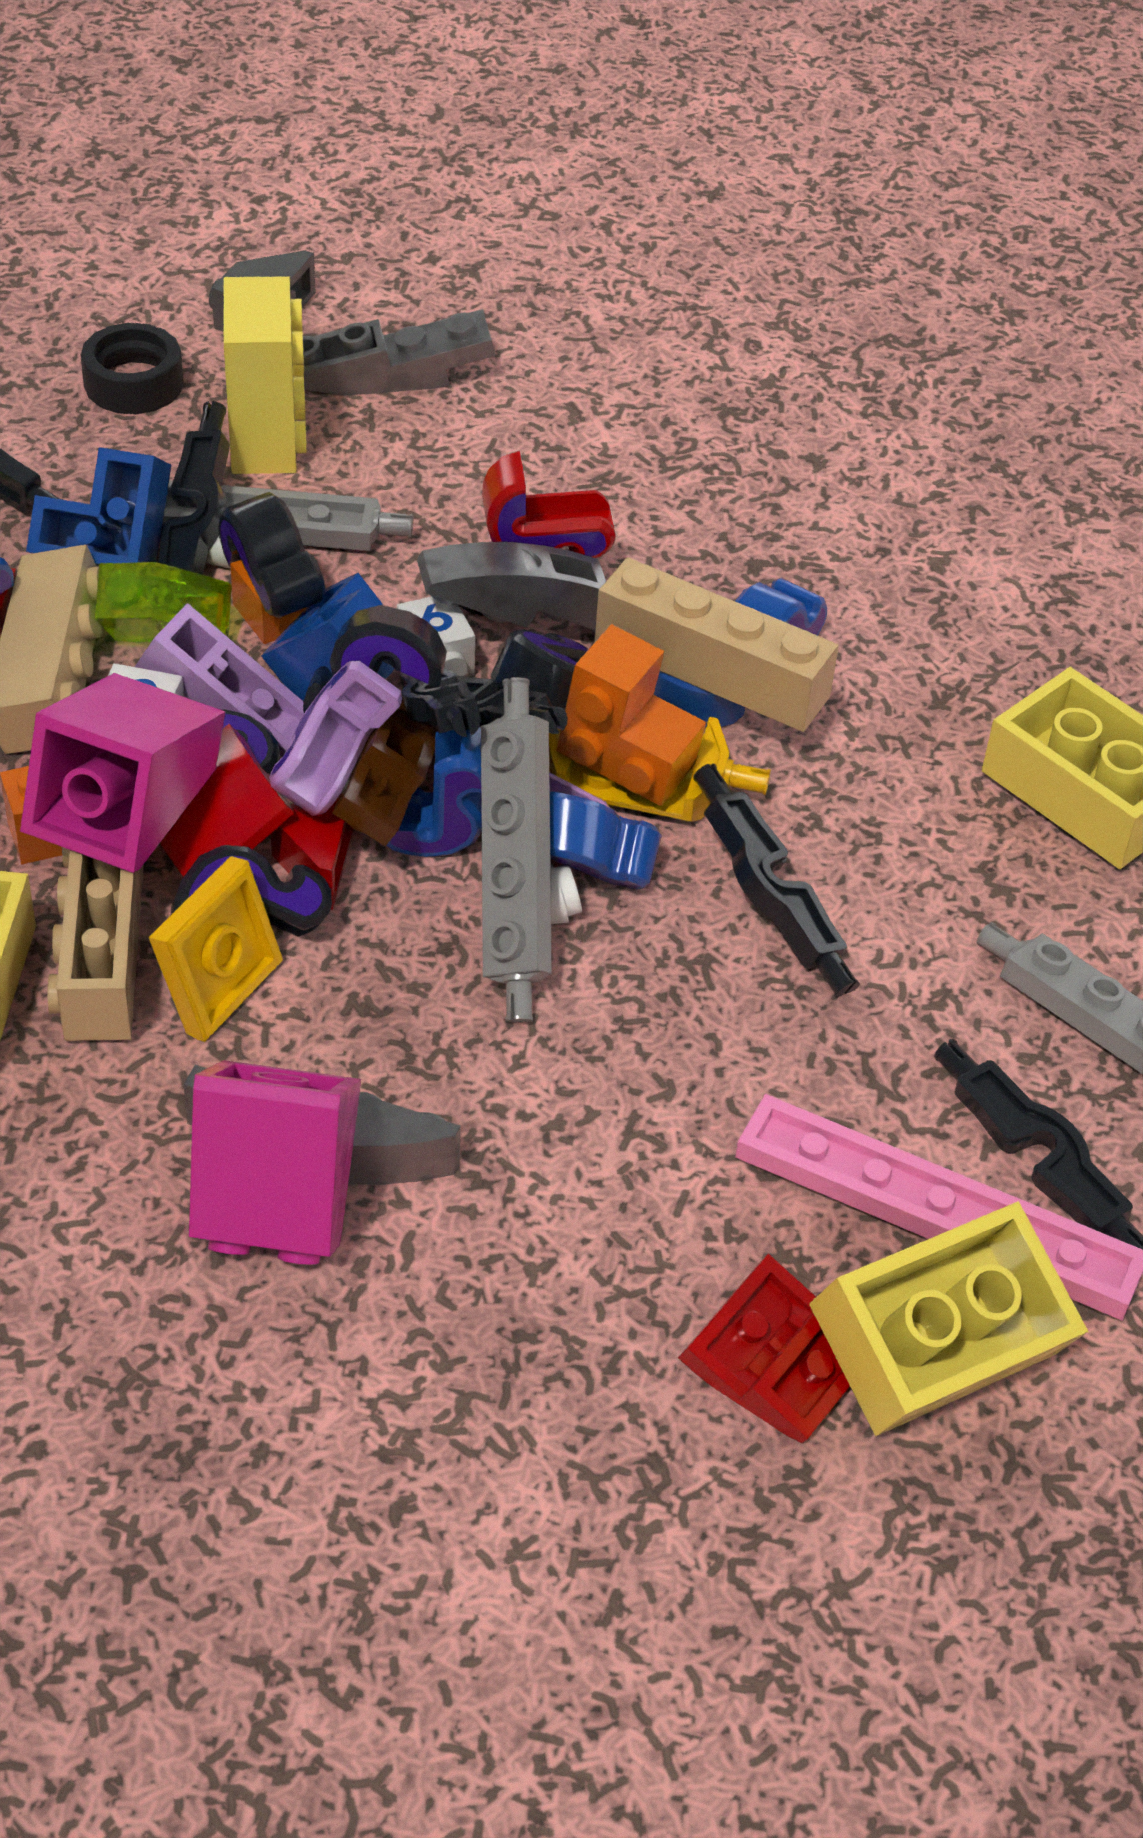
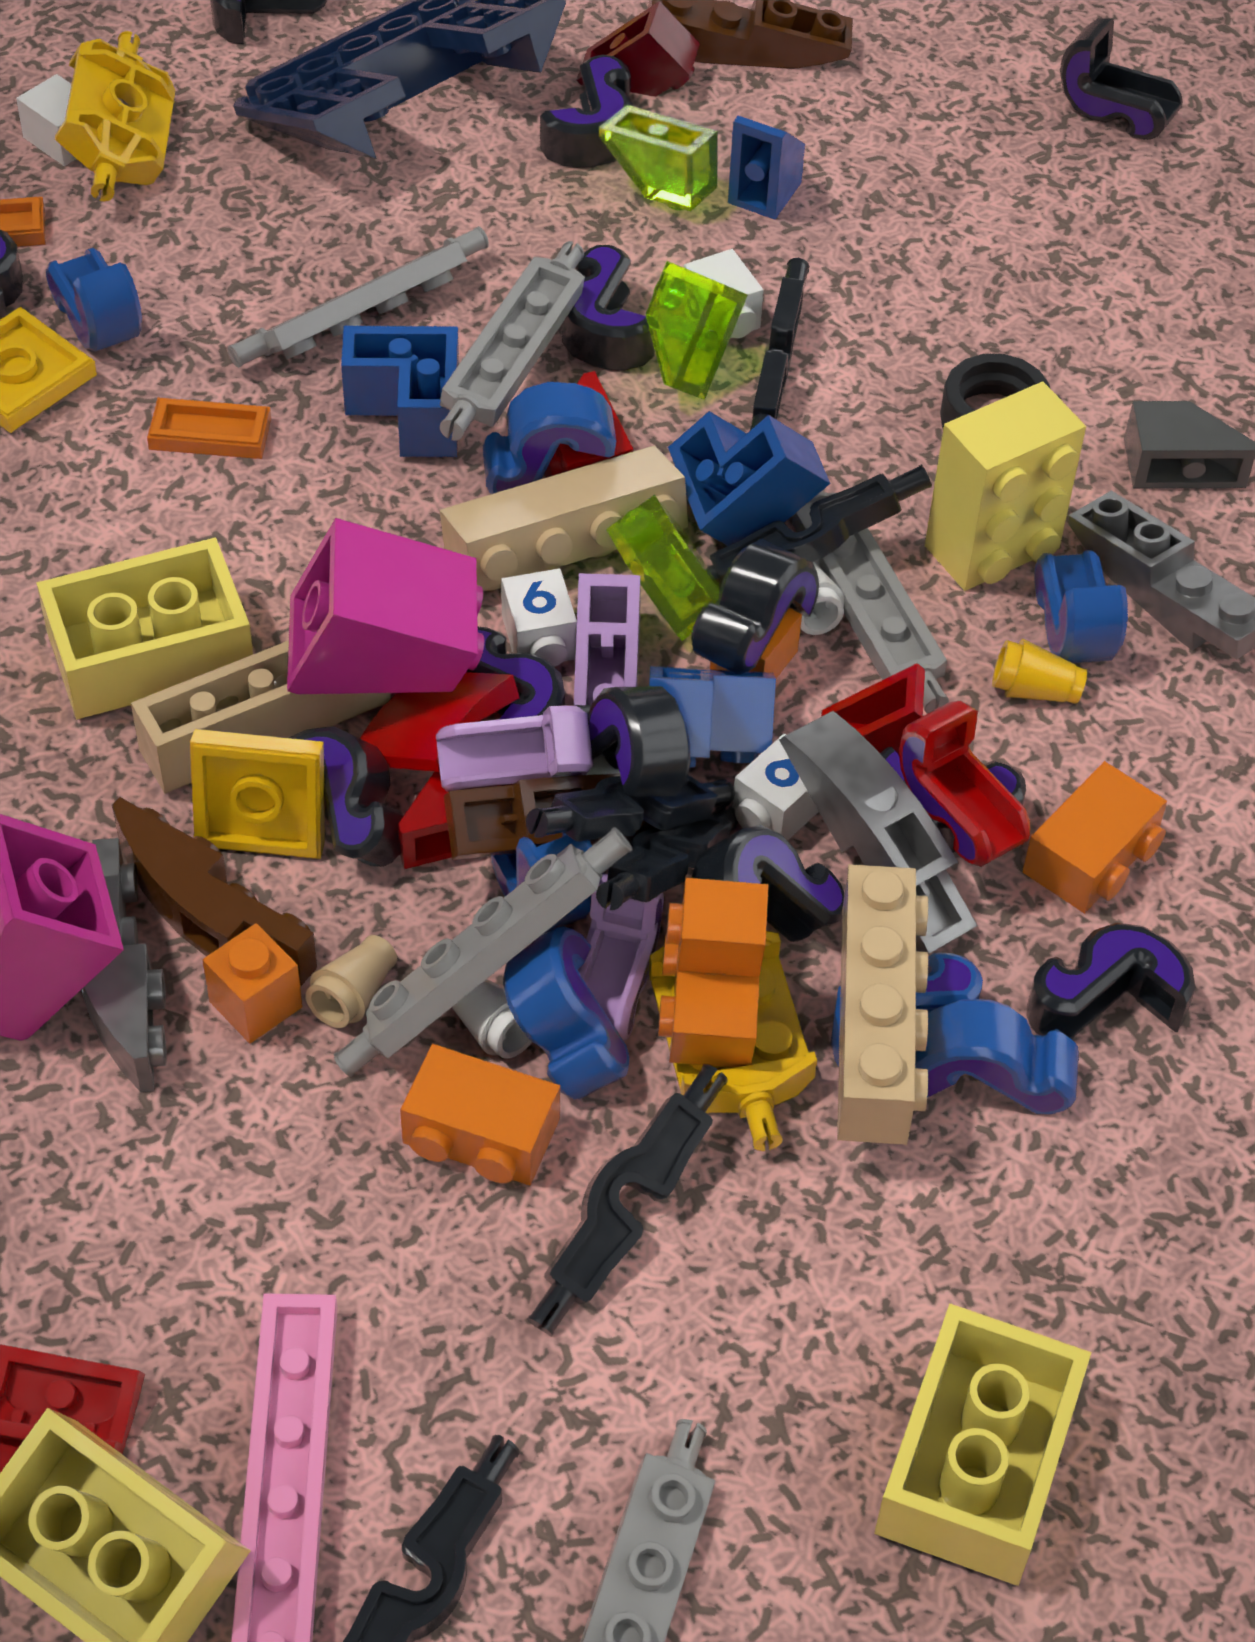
camera: 65 degrees right, 5 degrees up
(314, 1037) = (191, 891): none -> reddish brown slope
(382, 416) = (1081, 613): none -> blue animal
(411, 1036) = (253, 983): none -> orange brick
(412, 528) = (885, 707): none -> red slope
(419, 463) = (1037, 674): none -> yellow cone
(447, 980) = (346, 986): none -> tan cone
(604, 469) = (1096, 837): none -> orange brick
(639, 941) = (480, 1115): none -> orange brick
(729, 535) = (1109, 965): none -> black animal

